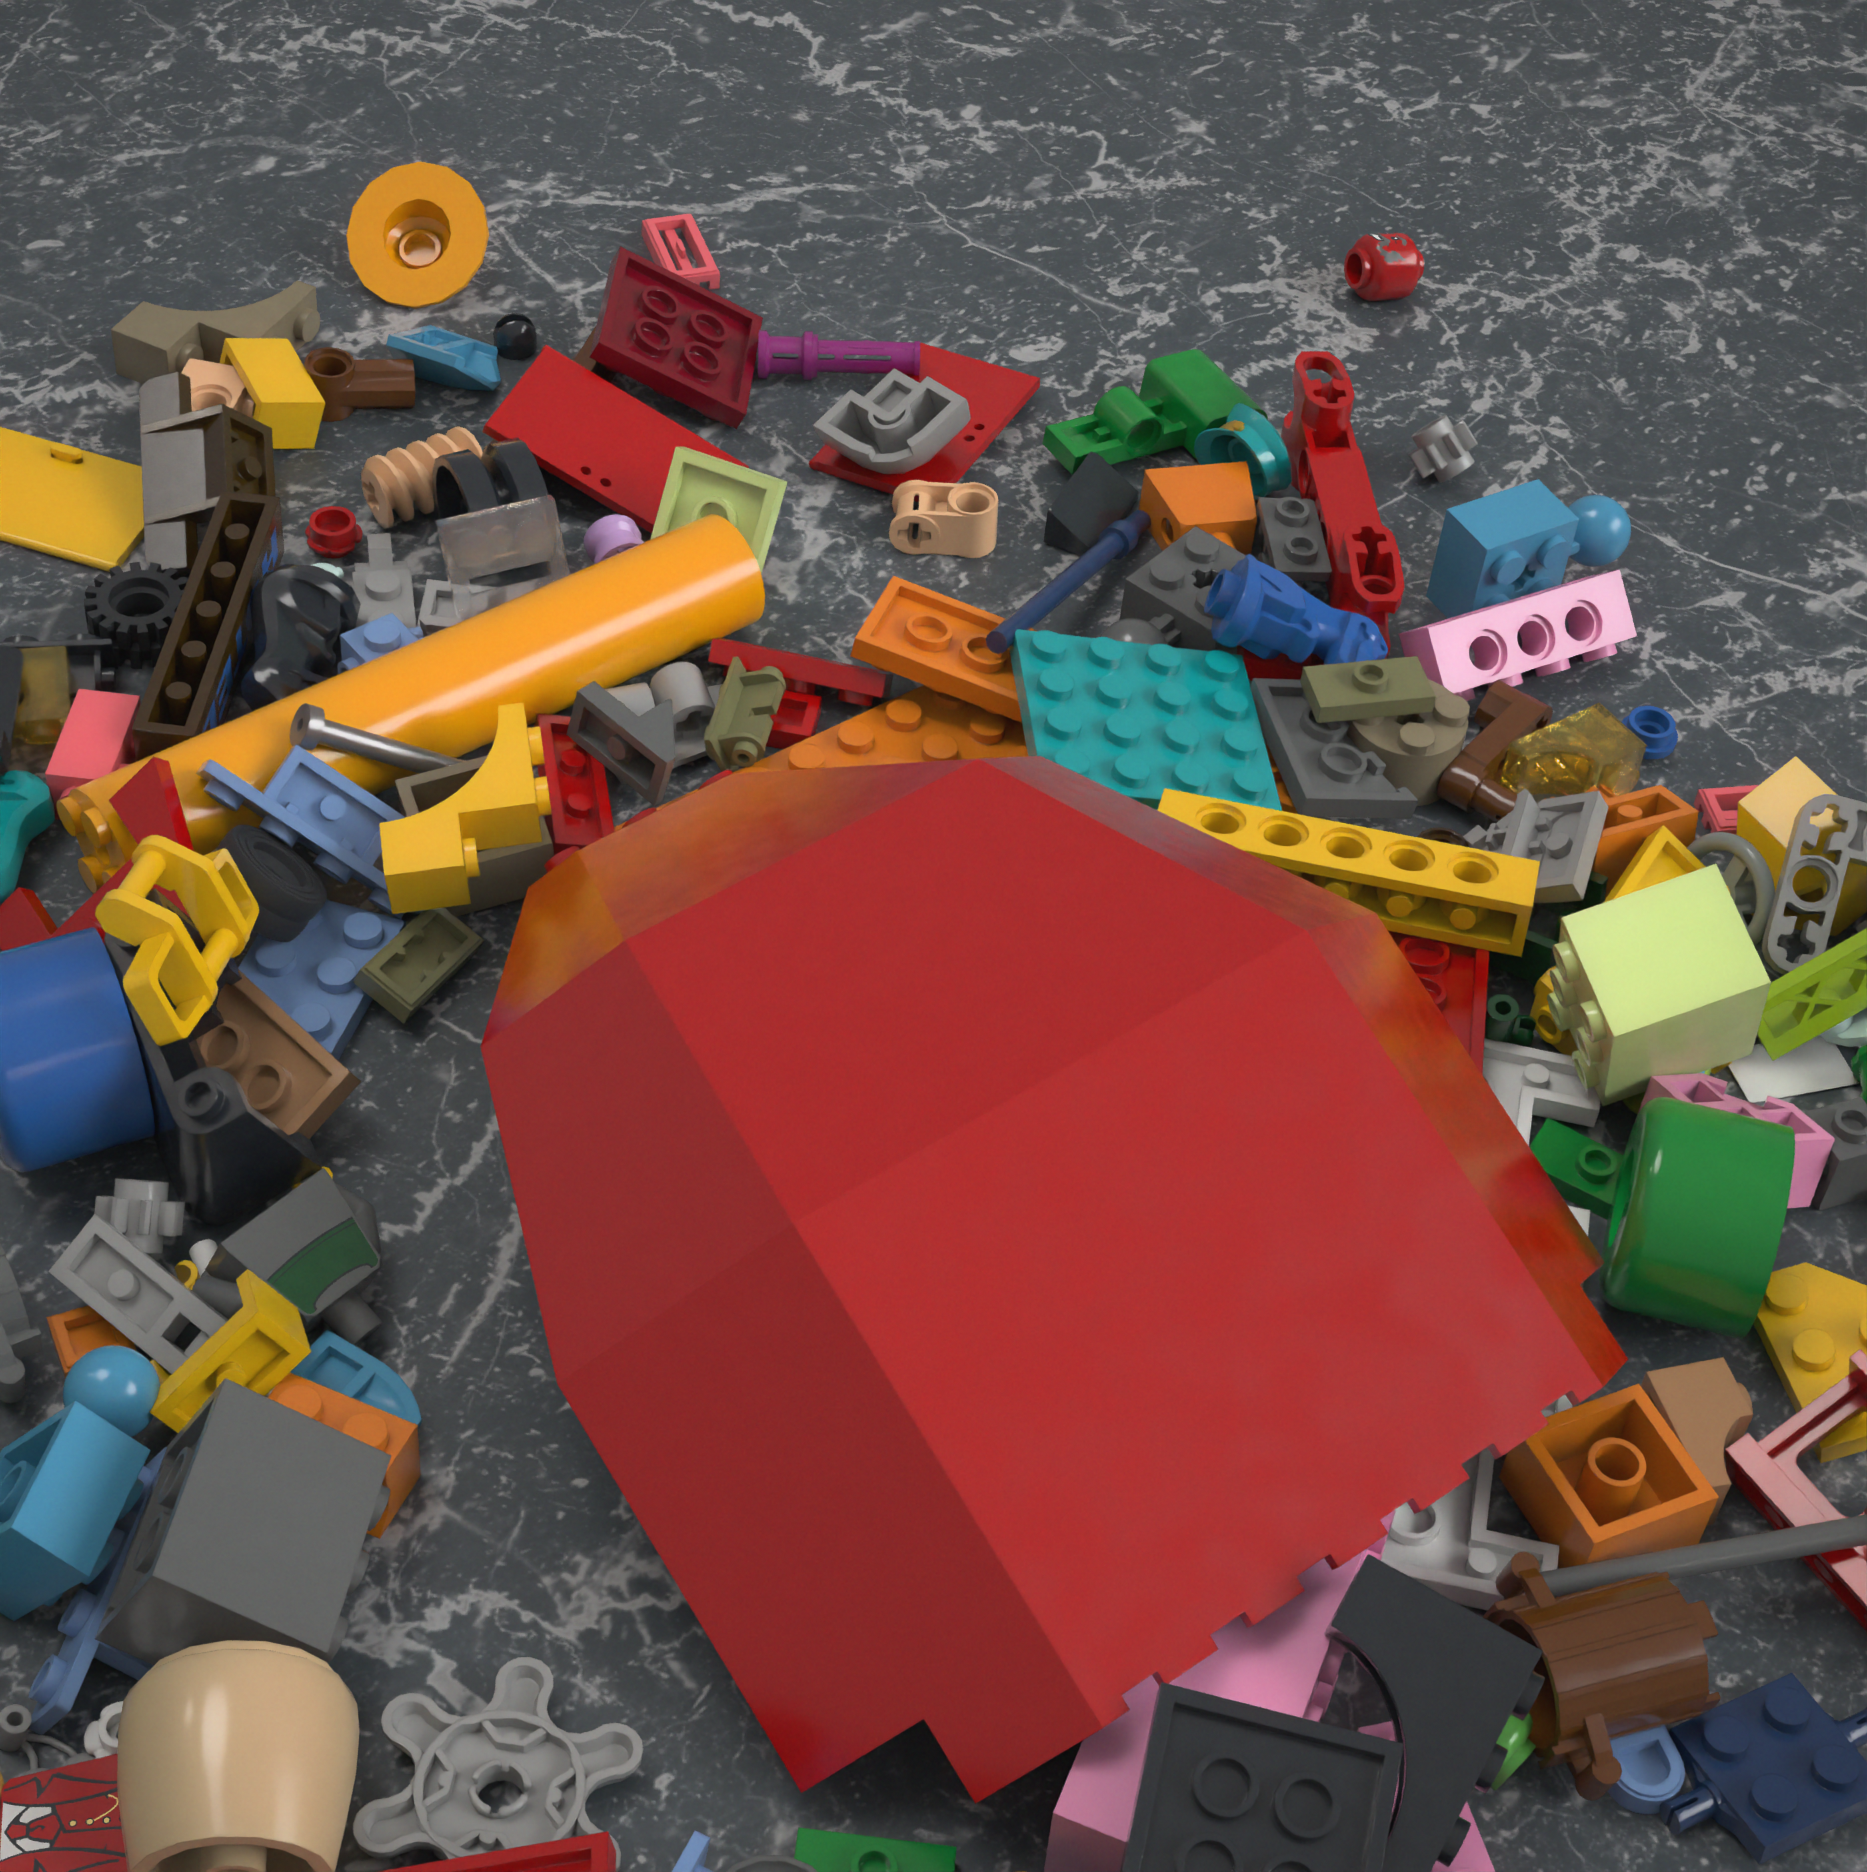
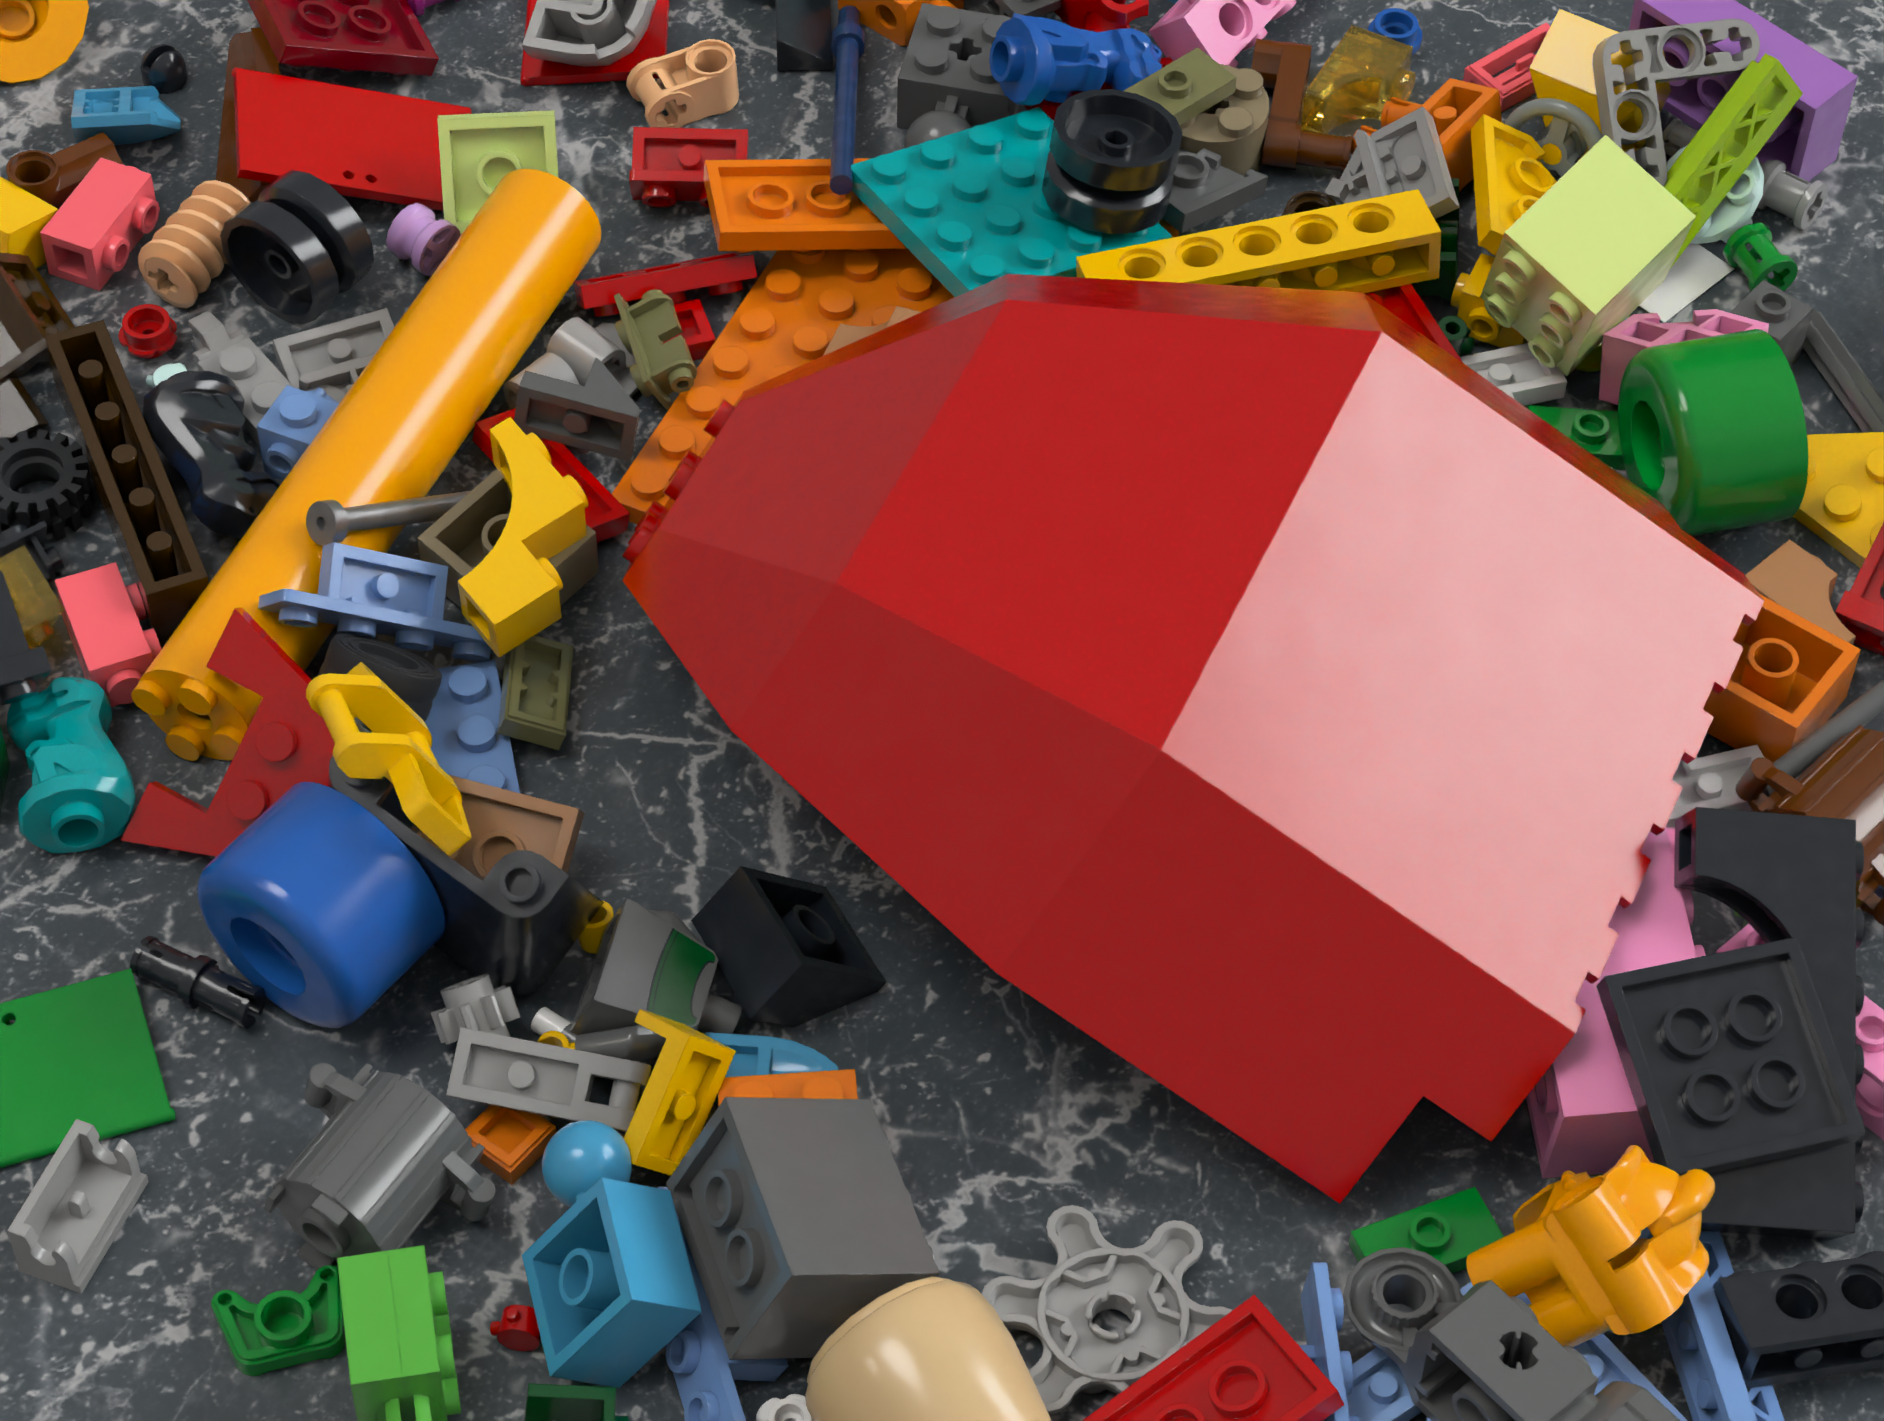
camera: 25 degrees left, 5 degrees up
(348, 430) = (100, 224): none -> coral brick
(458, 1290) = (785, 948): none -> black slope
(498, 542) = (337, 278): clear plate -> none
(873, 564) = (672, 161): none -> red bracket
(1250, 716) = (1111, 161): none -> black wheel

